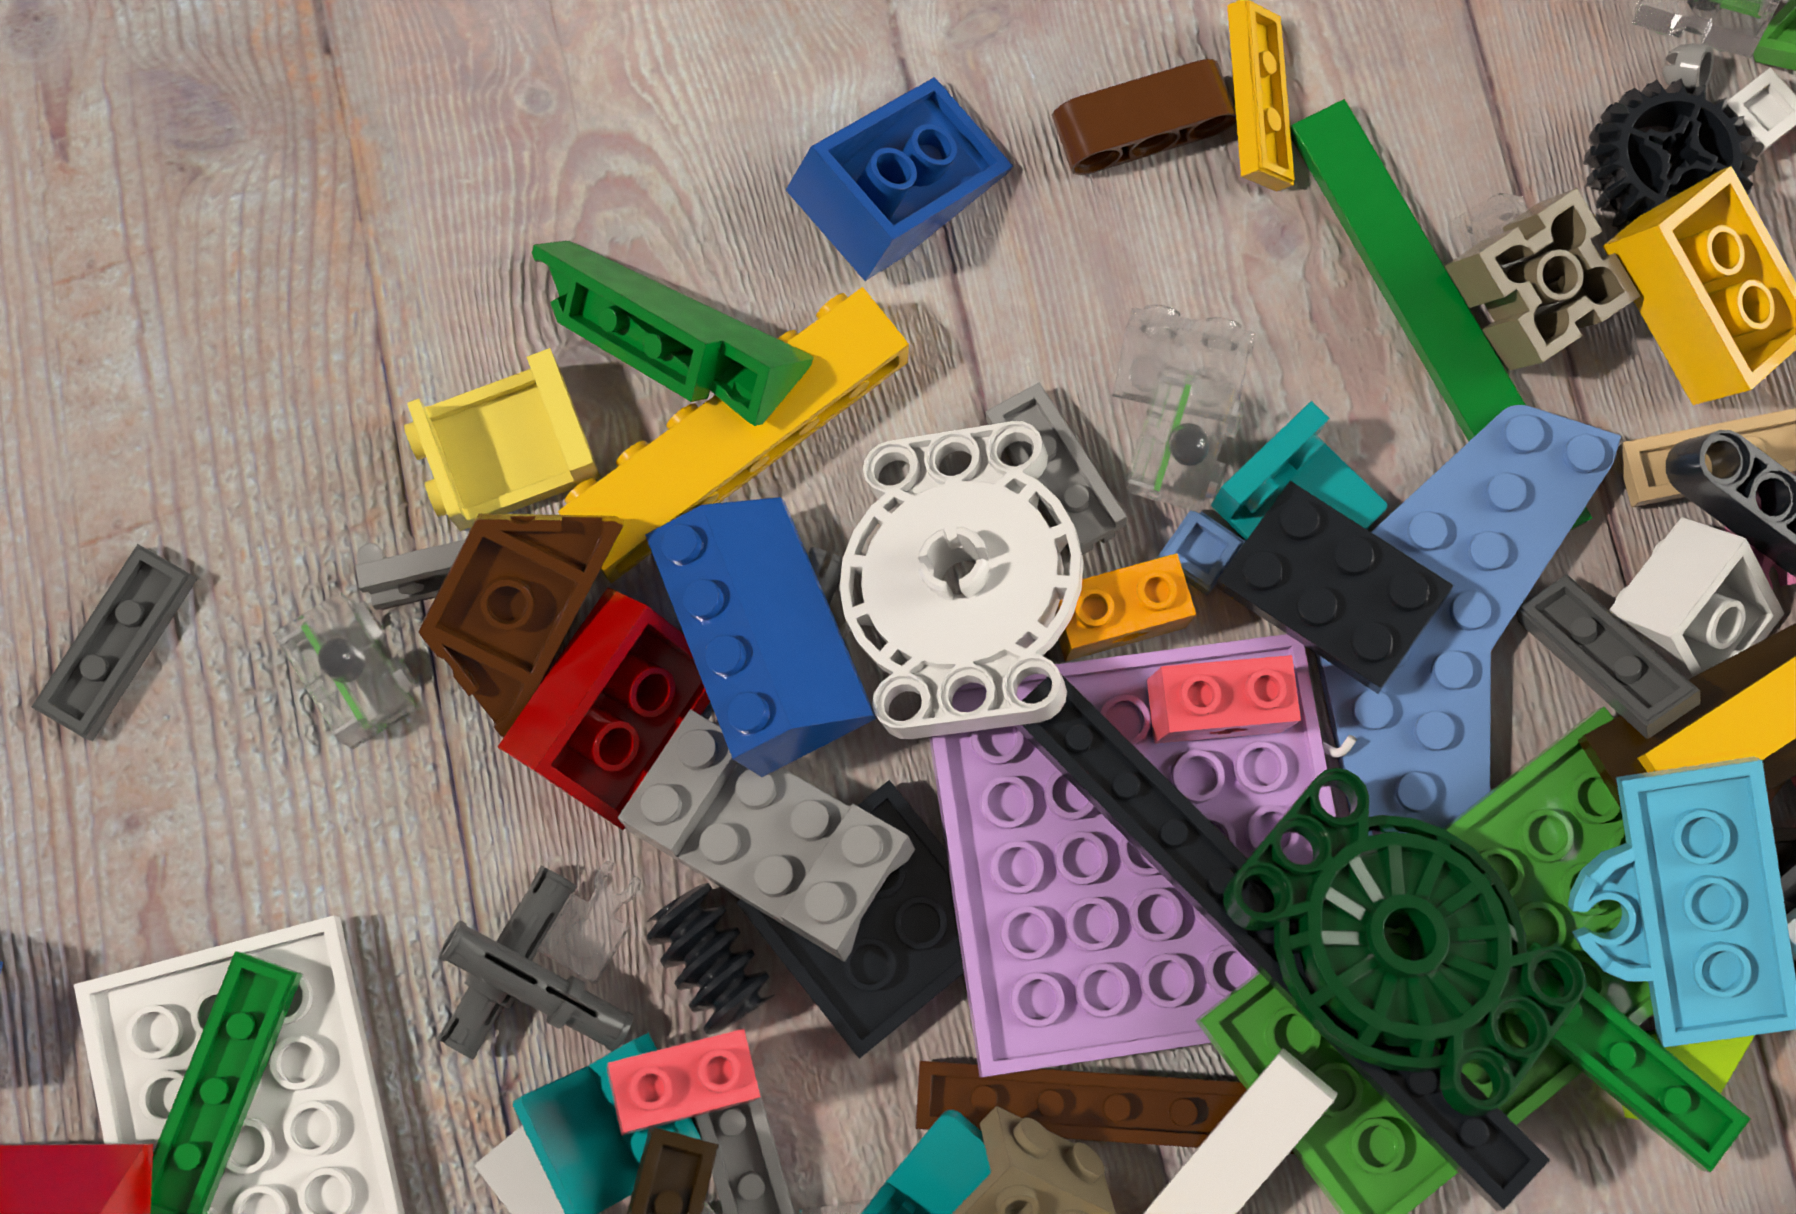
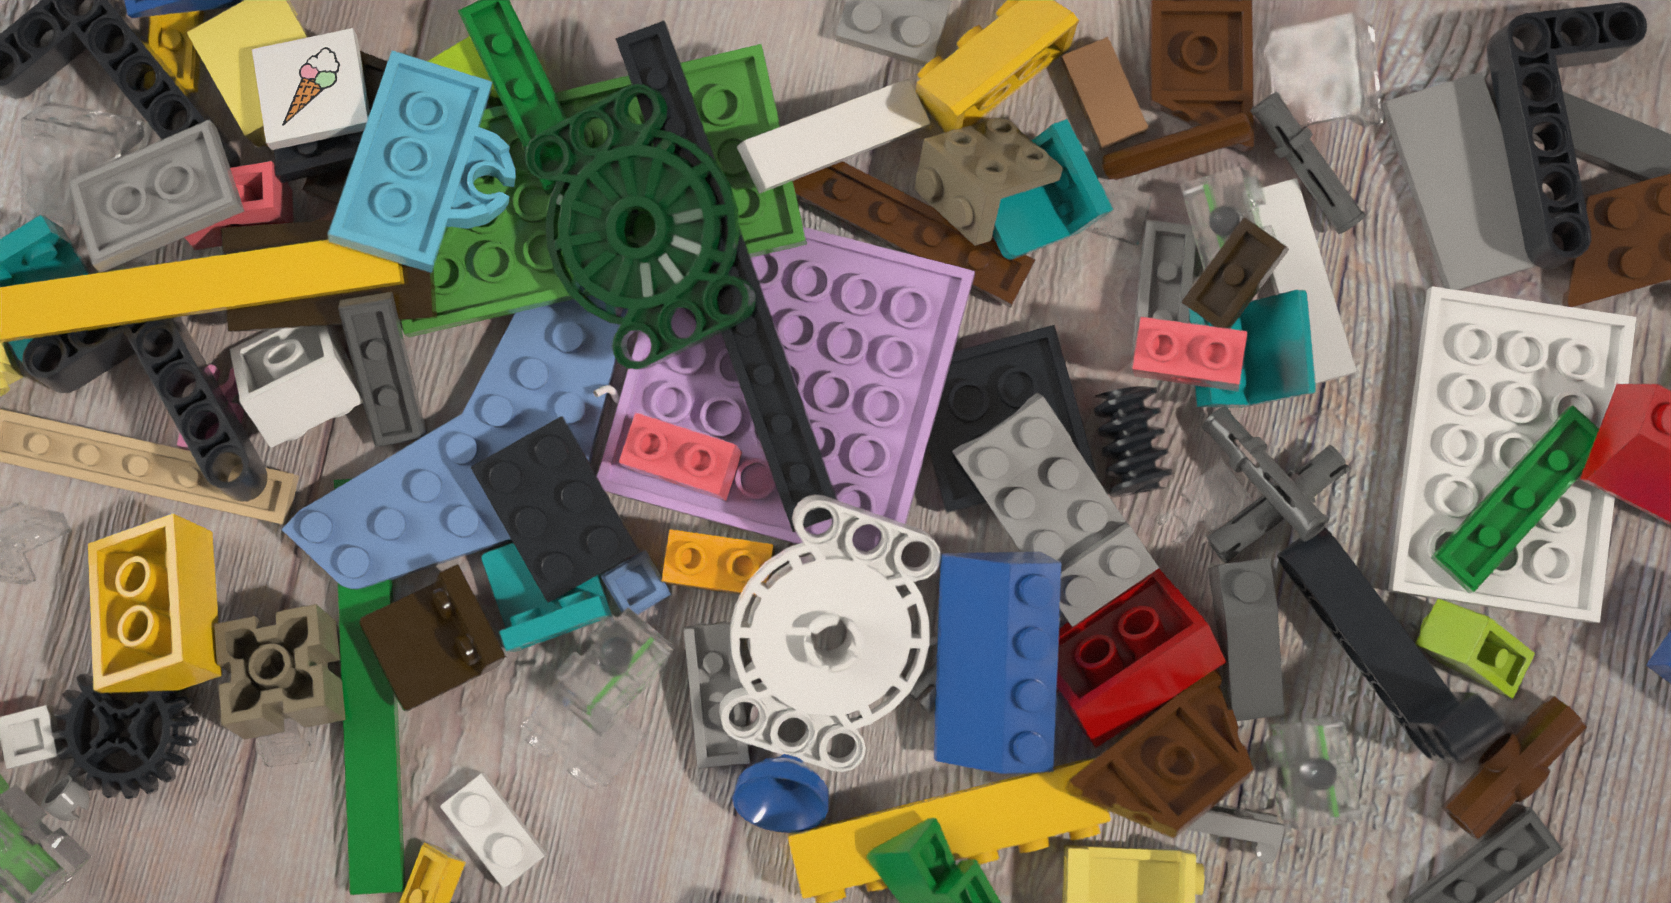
camera: 150 degrees left, 5 degrees up
(119, 775) = (1514, 766): none -> reddish brown piece
(213, 890) = (1475, 647): none -> lime slope
(308, 834) = (1438, 721): none -> black beam
(483, 791) = (1248, 637): none -> dark grey slope
(935, 390) = (778, 802): none -> blue piece
(1226, 228) = (493, 830): none -> white plate
(1397, 385) = (432, 640): none -> dark brown bracket

